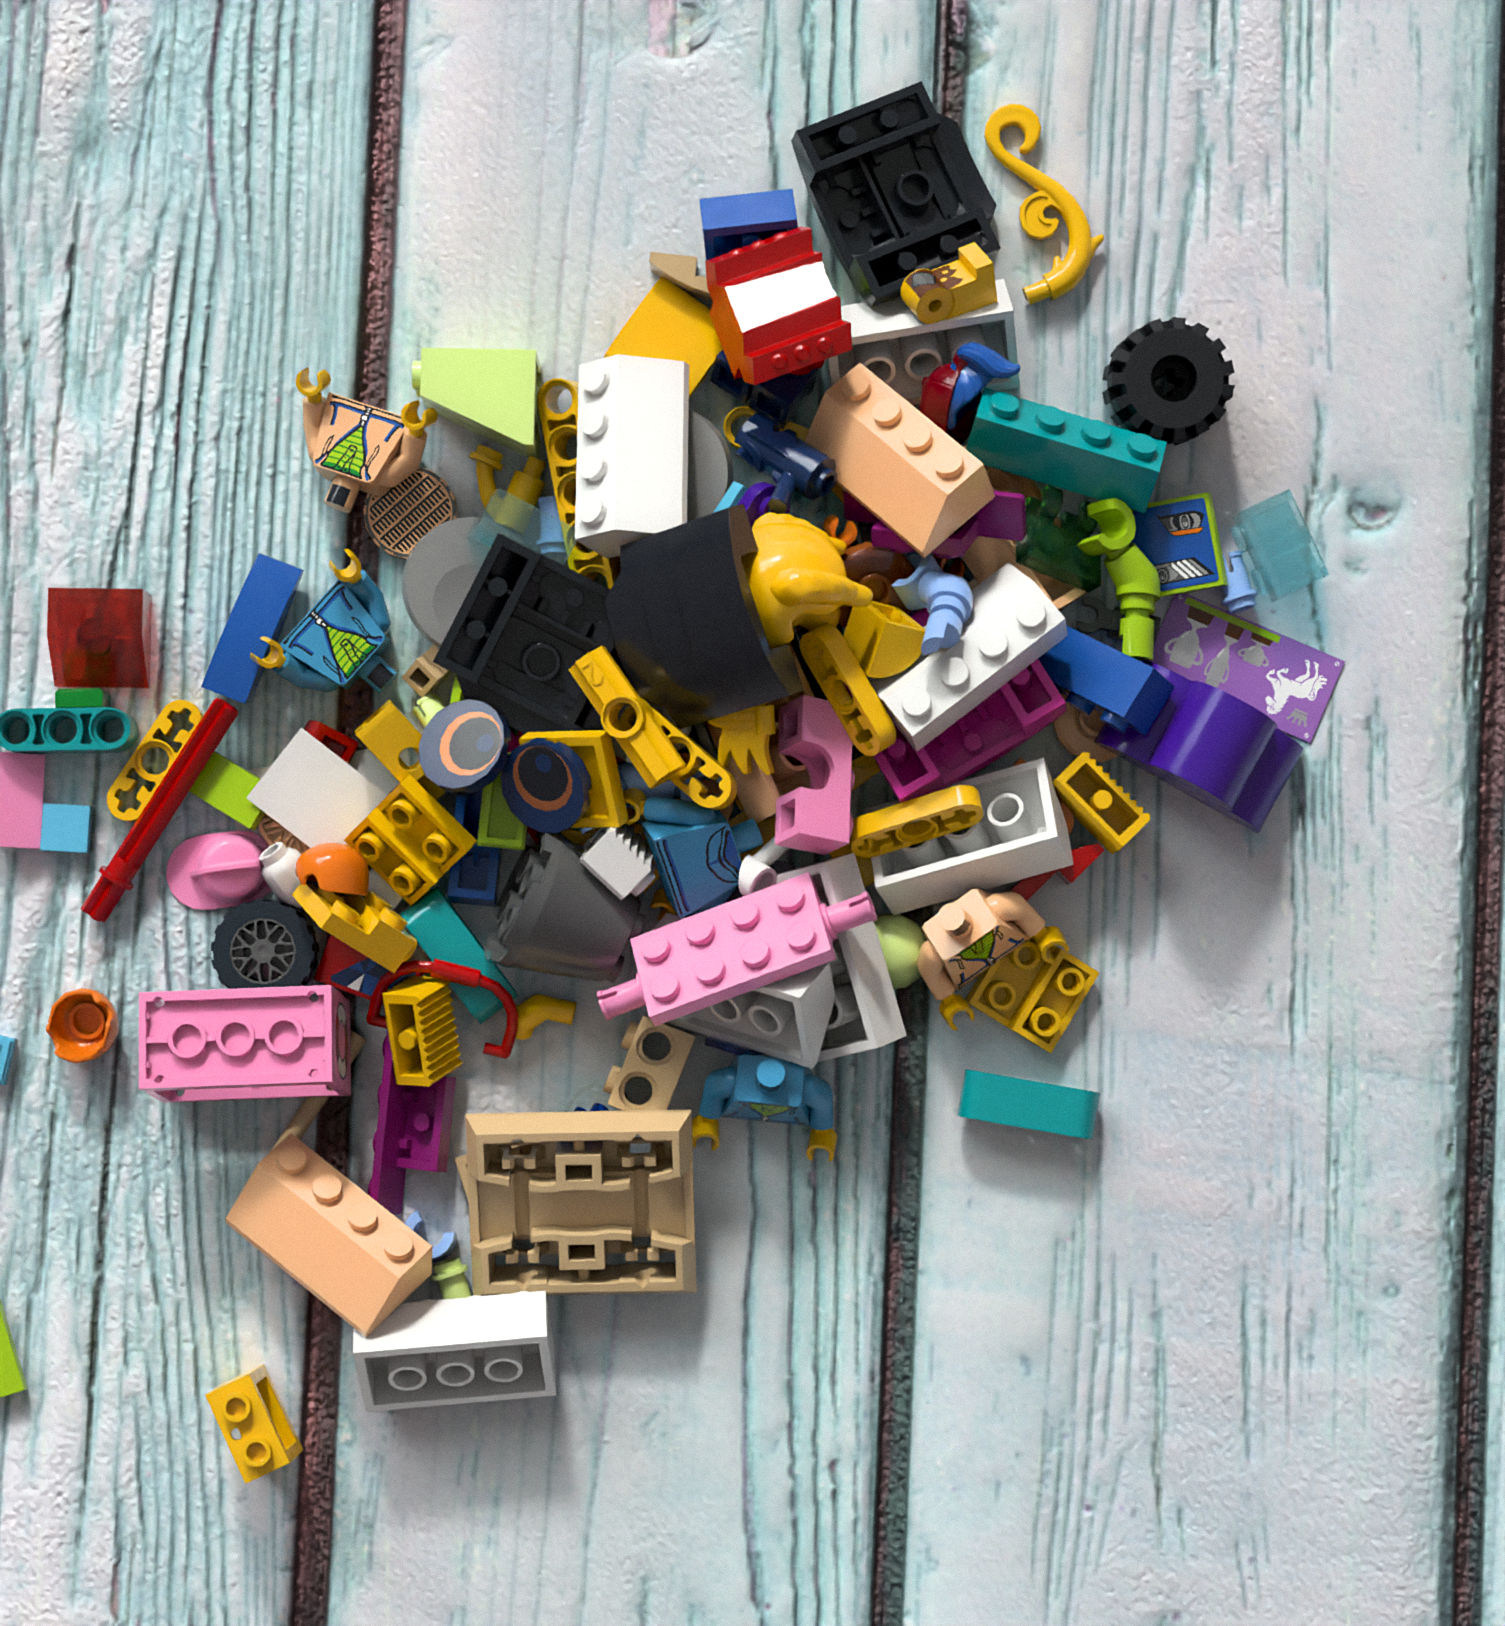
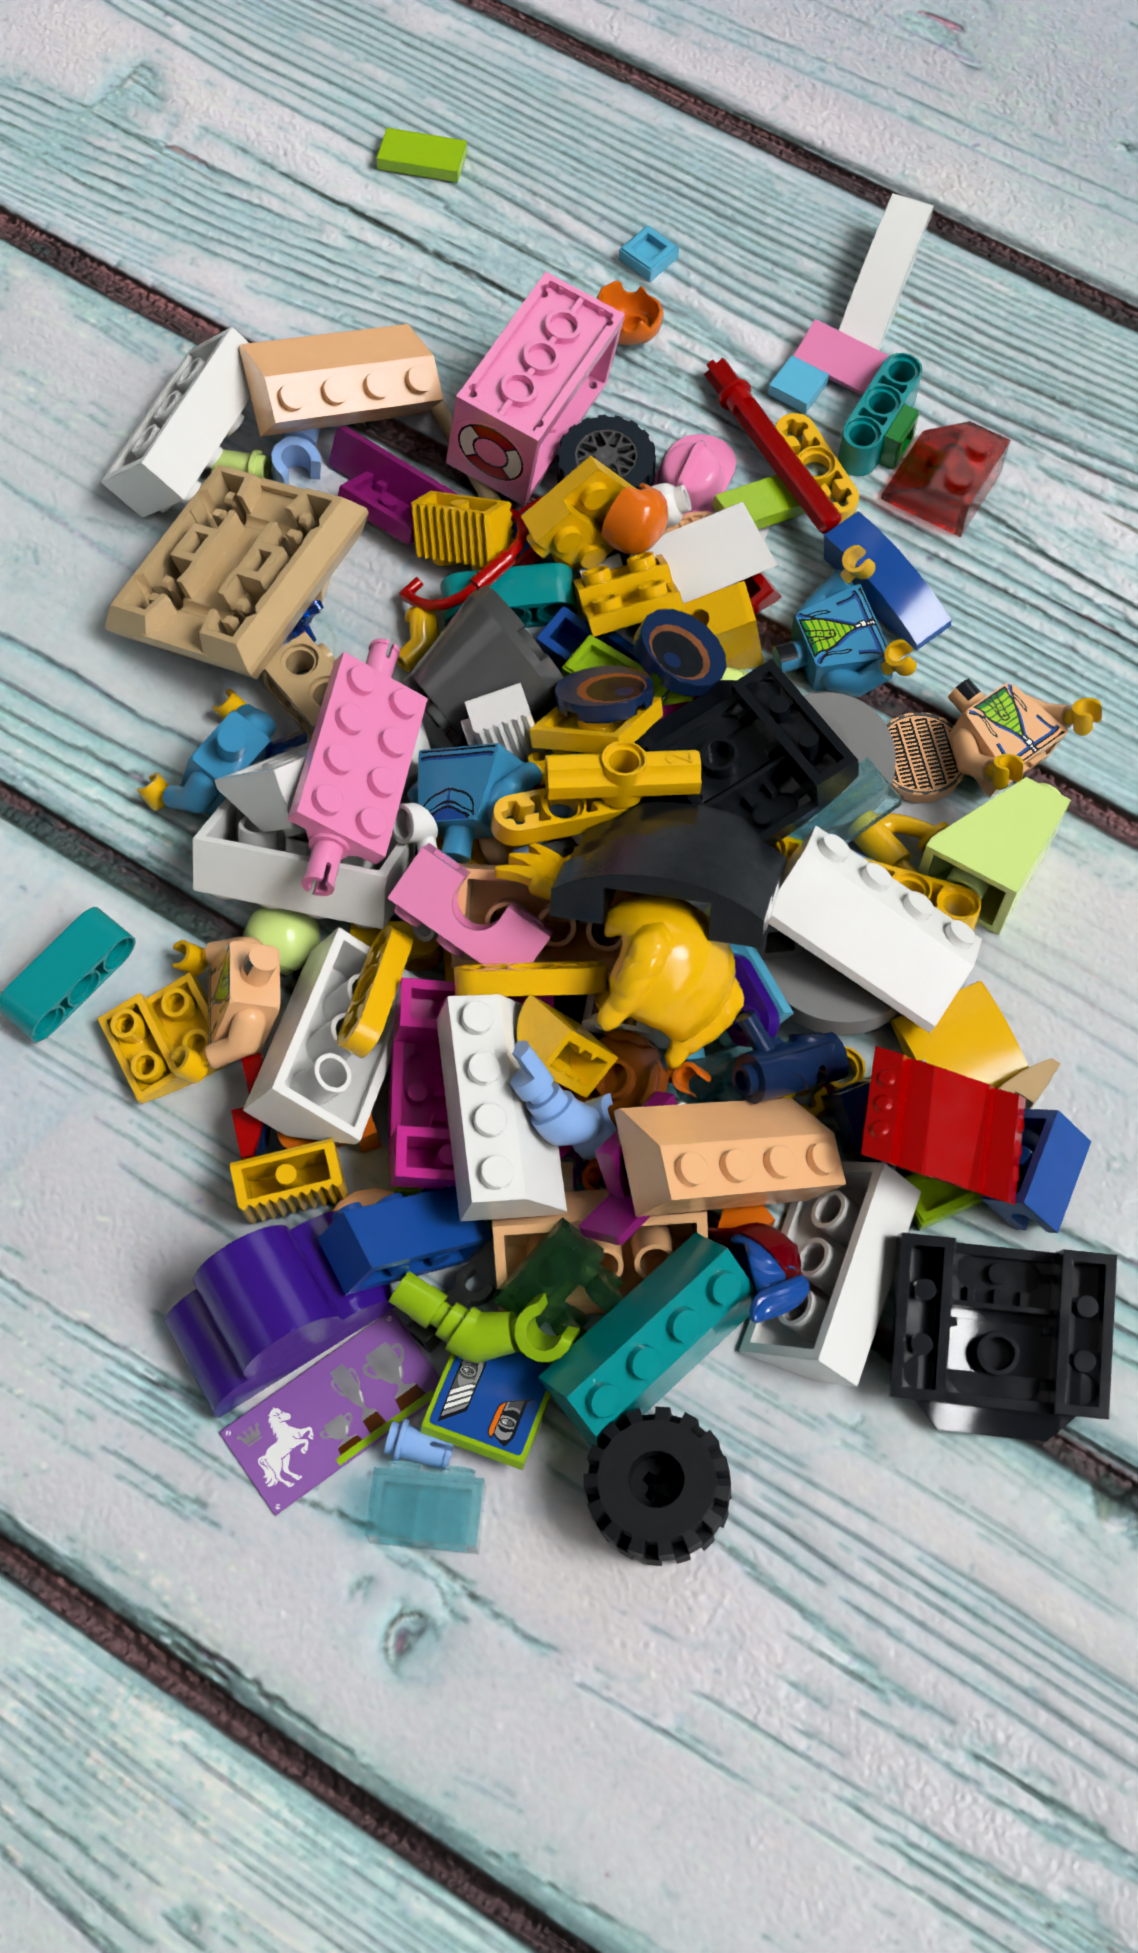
camera: 120 degrees right, 20 degrees down
(258, 1413) = (227, 293): yellow window -> none
(952, 287) = (874, 1313): yellow leg -> none
(1050, 194) = (921, 1495): yellow plant -> none

